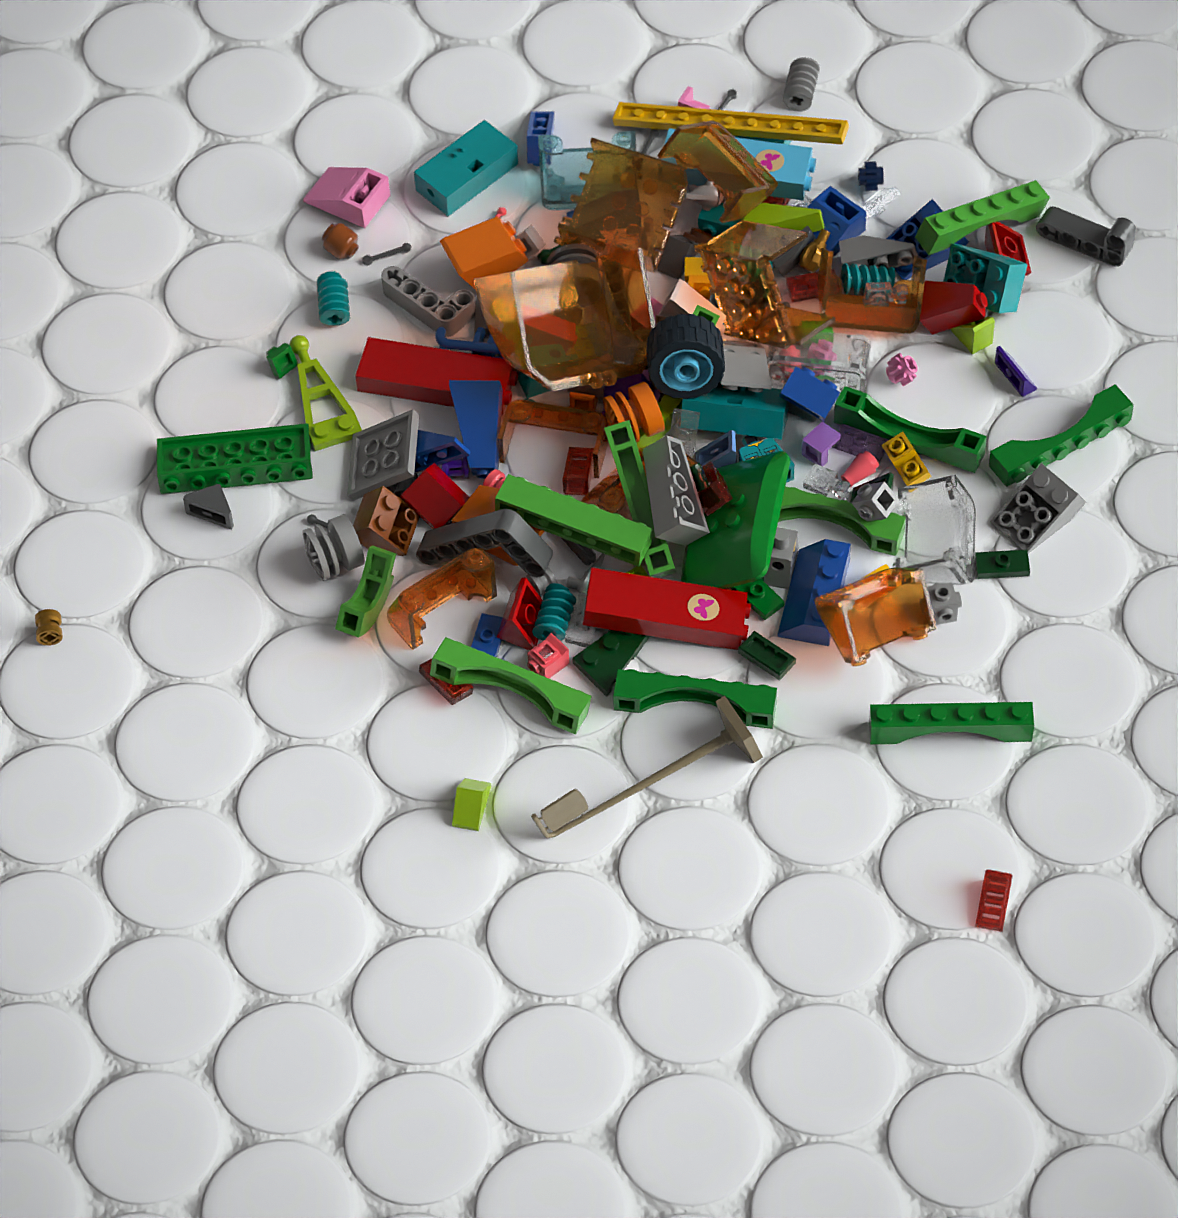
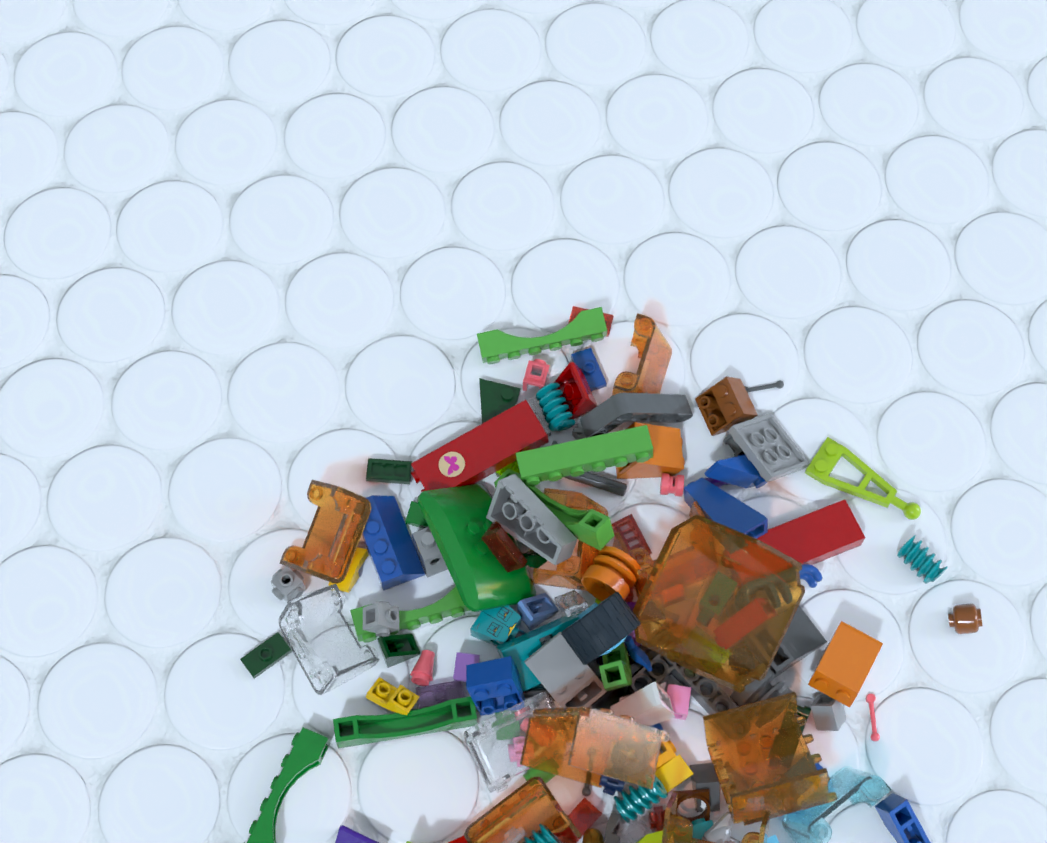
camera: 140 degrees right, 10 degrees up
(48, 631) = (871, 202): pearl gold wheel -> none
(209, 505) = (850, 346): dark grey slope -> none
(234, 458) = (872, 392): green bracket -> none
(281, 360) = (912, 487): green tile -> none
(330, 548) = (740, 356): light grey wheel -> none
(350, 193) = (999, 666): bright pink slope -> none
(365, 605) = (687, 338): bright green arch -> none
(367, 259) = (934, 623): dark grey hinge -> none
(426, 304) = (860, 607): light grey beam -> none
(435, 497) = (706, 445): red slope -> none
(466, 167) = (935, 754): teal brick -> none
(470, 804) = (509, 255): lime slope -> none
(574, 803) = (368, 392): dark tan piece -> none
(644, 690) = (375, 425): green arch -> none
(824, 480) = (444, 639): clear plate -> none
(901, 369) = (449, 780): bright pink gear -> none
(995, 719) = (194, 510): green arch -> none
(997, 883) = (127, 401): clear red slope -> none
(1038, 509) = (263, 719): light grey slope -> none

